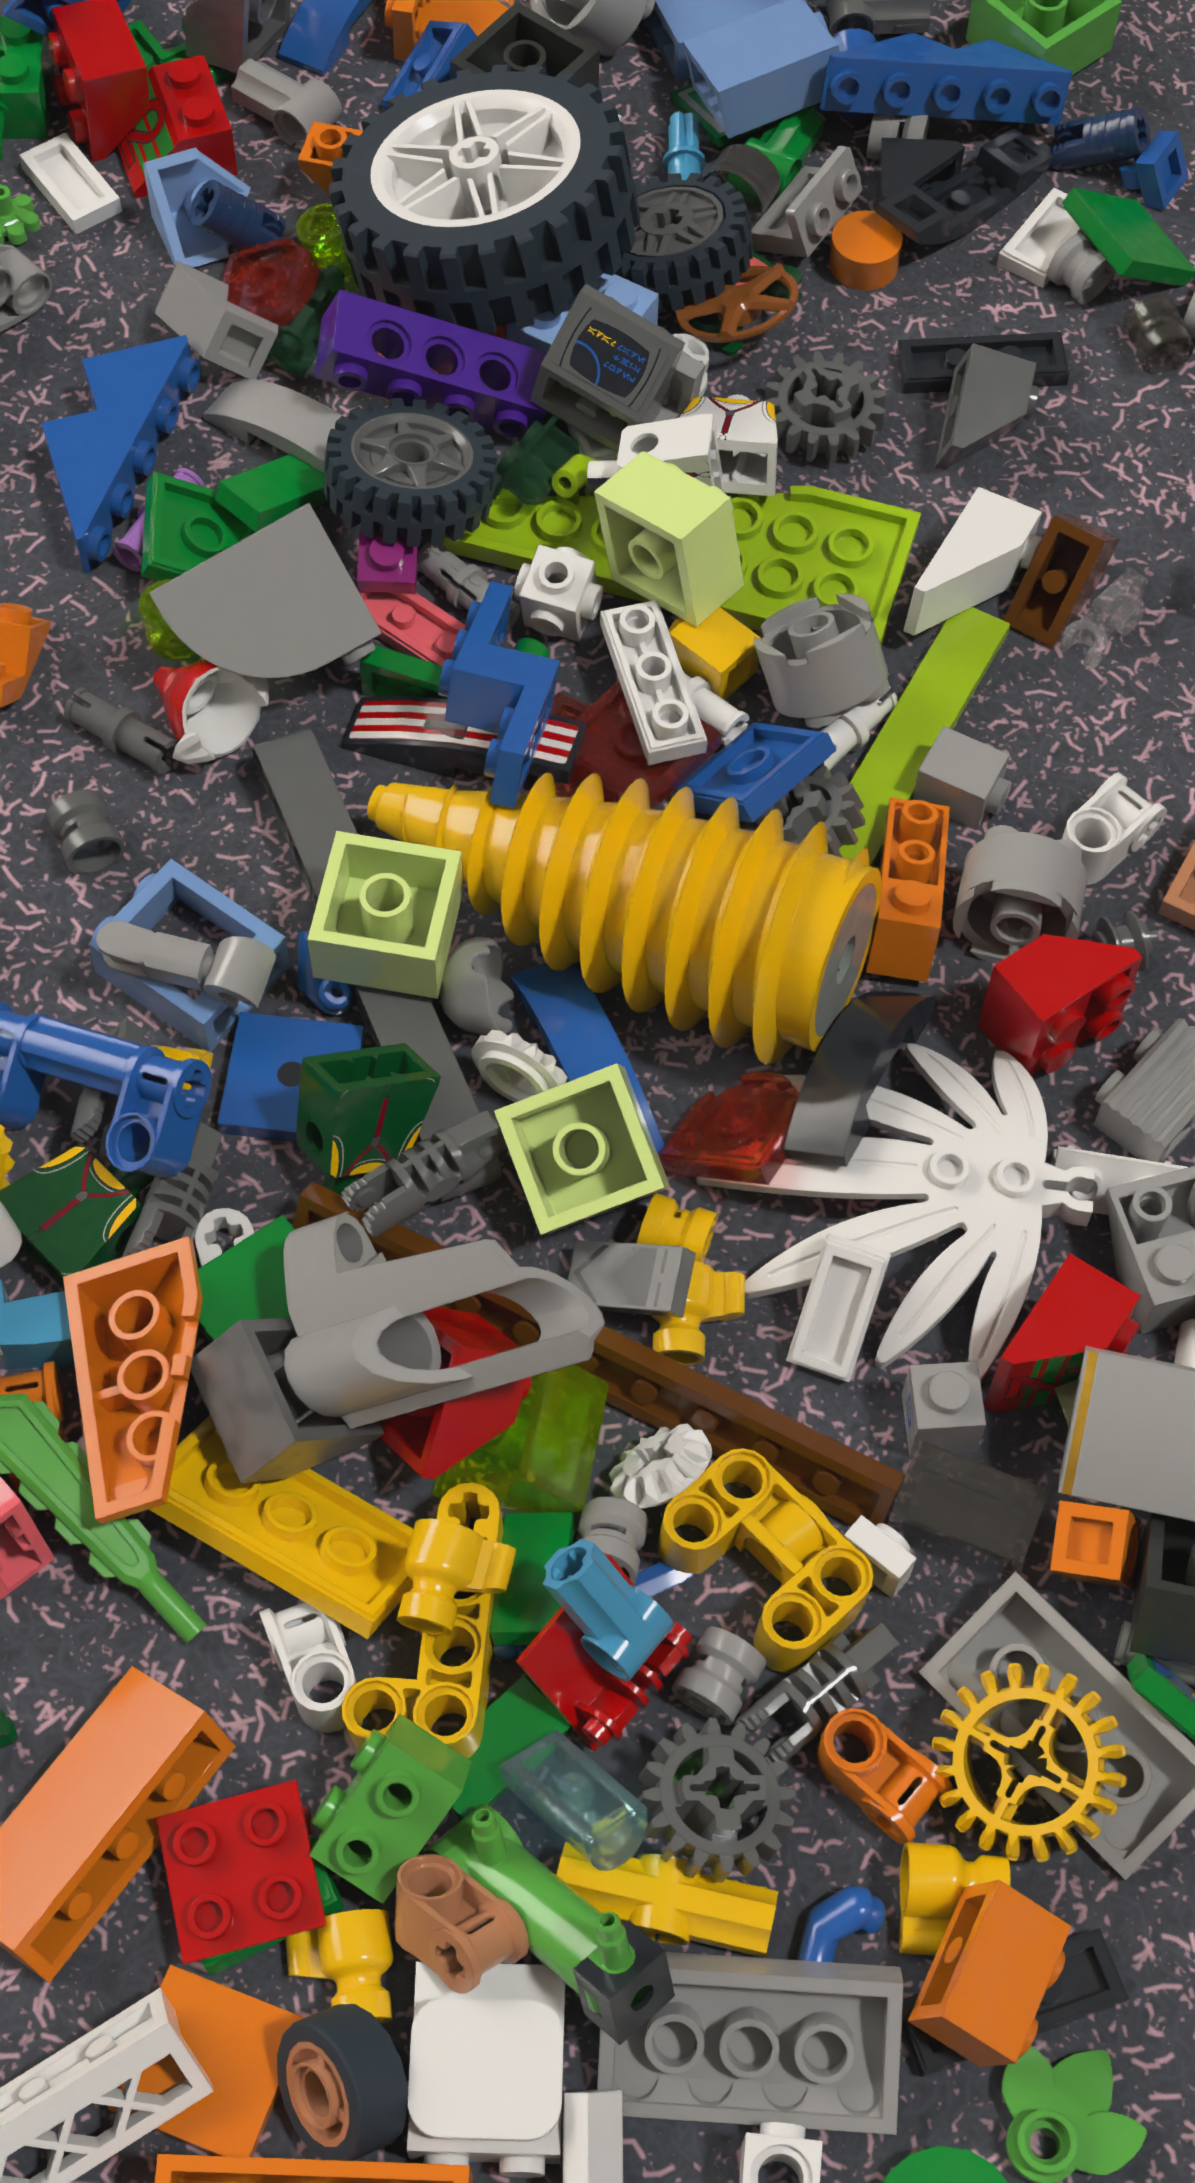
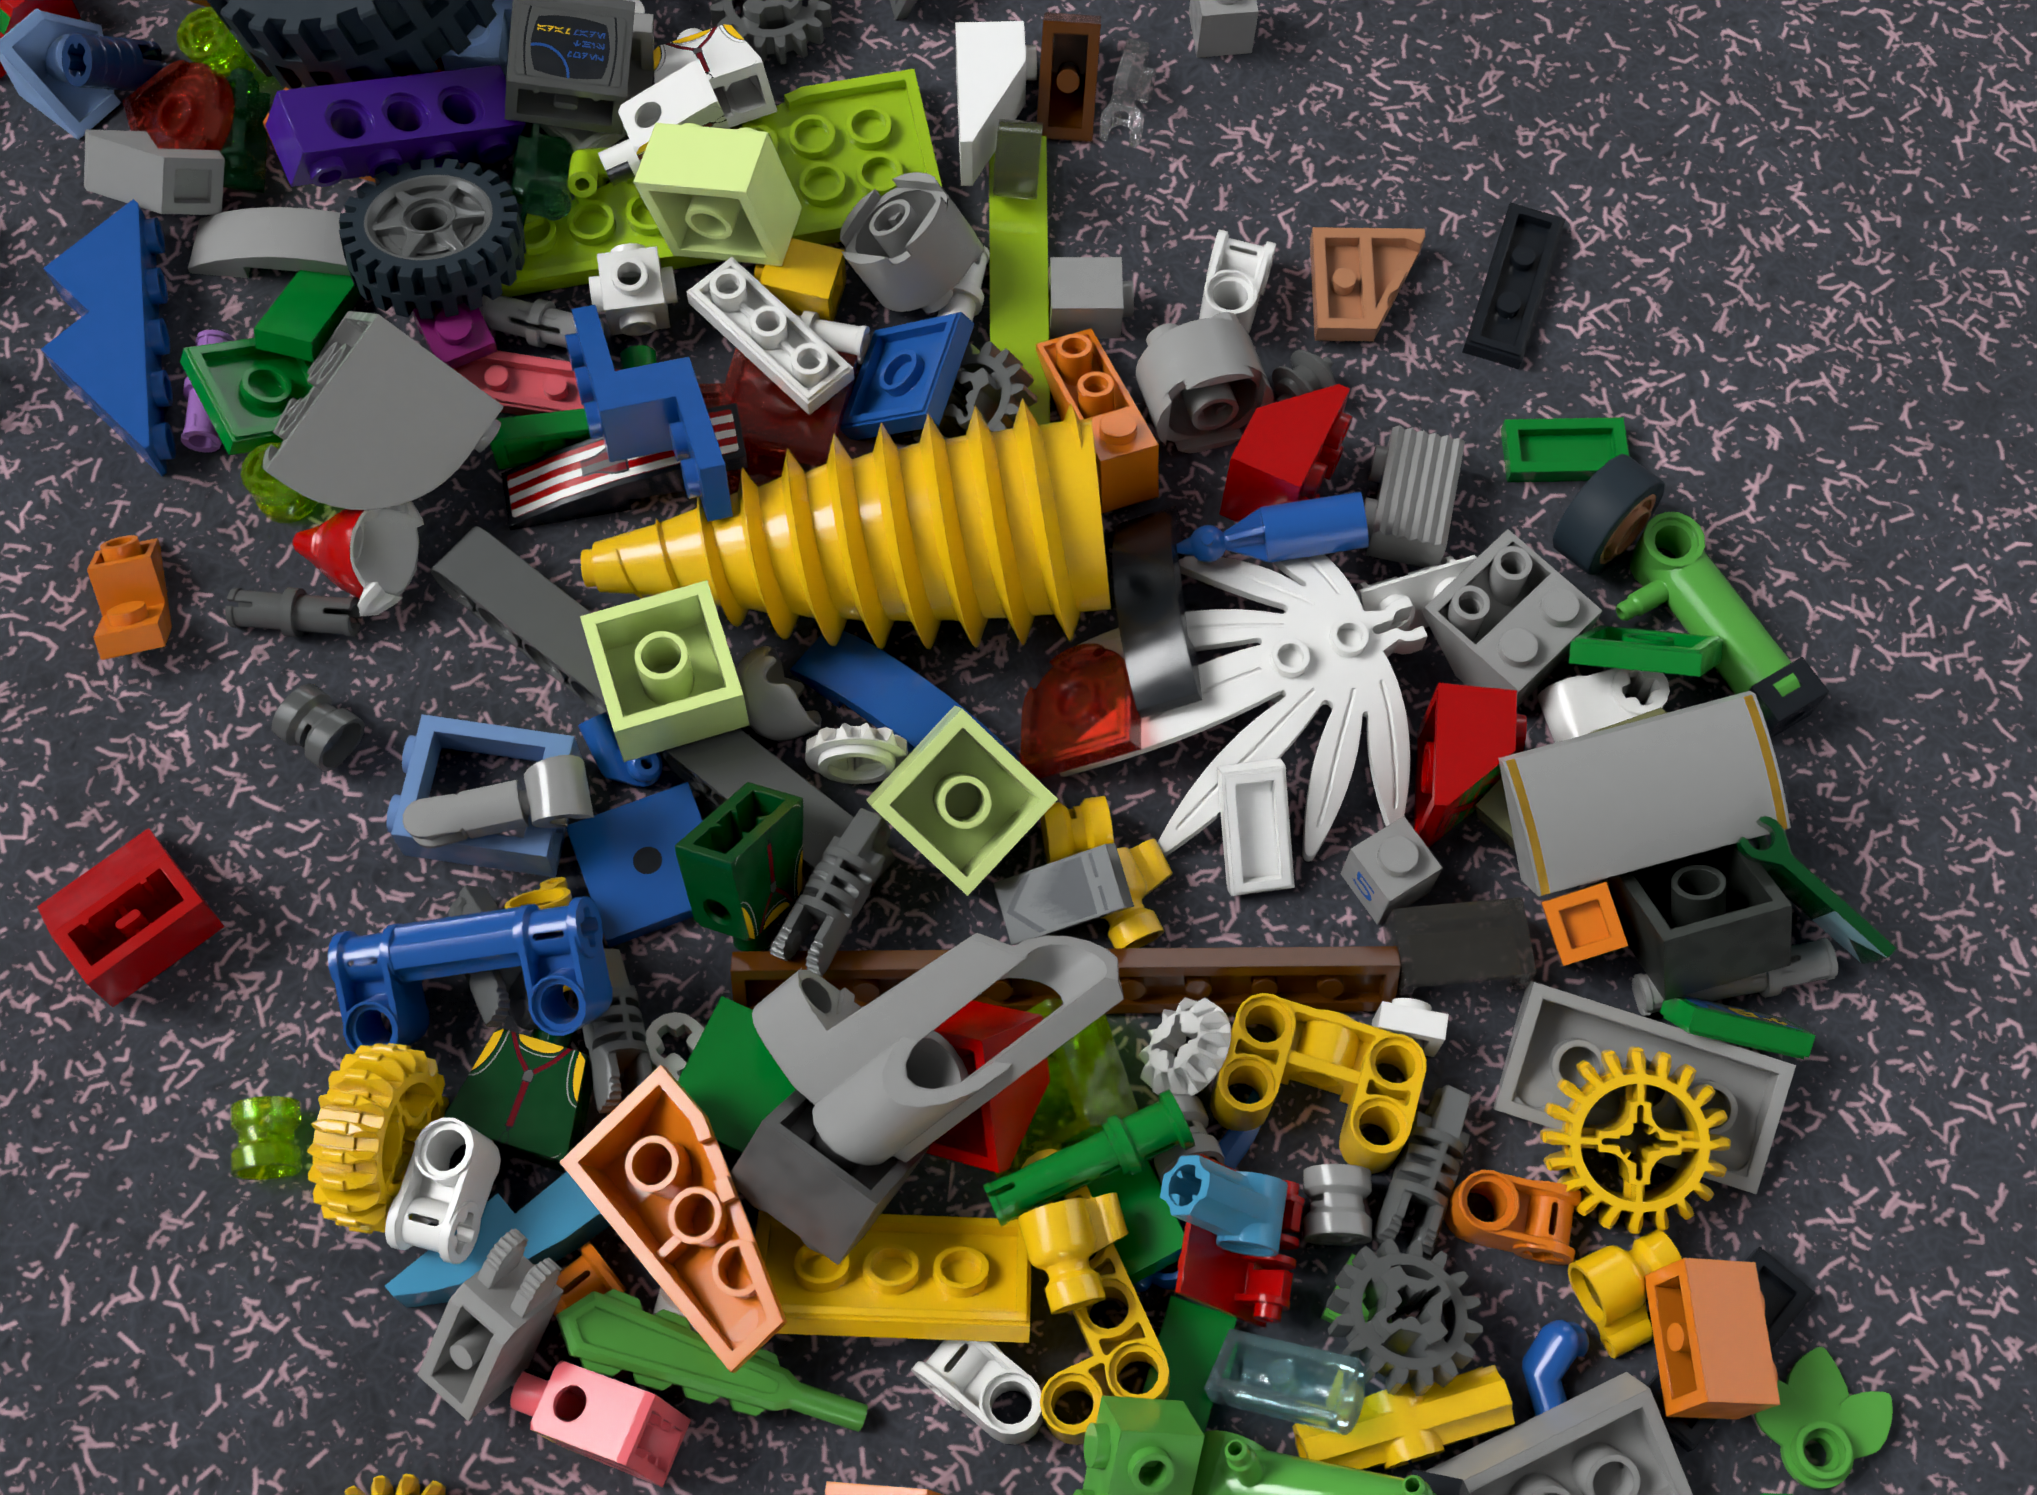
camera: 30 degrees left, 5 degrees up
(539, 1510) = (1120, 1146): none -> green pin
(964, 628) = (1018, 159): none -> clear smoke piece
(1016, 1059) = (1287, 531): none -> blue wheel

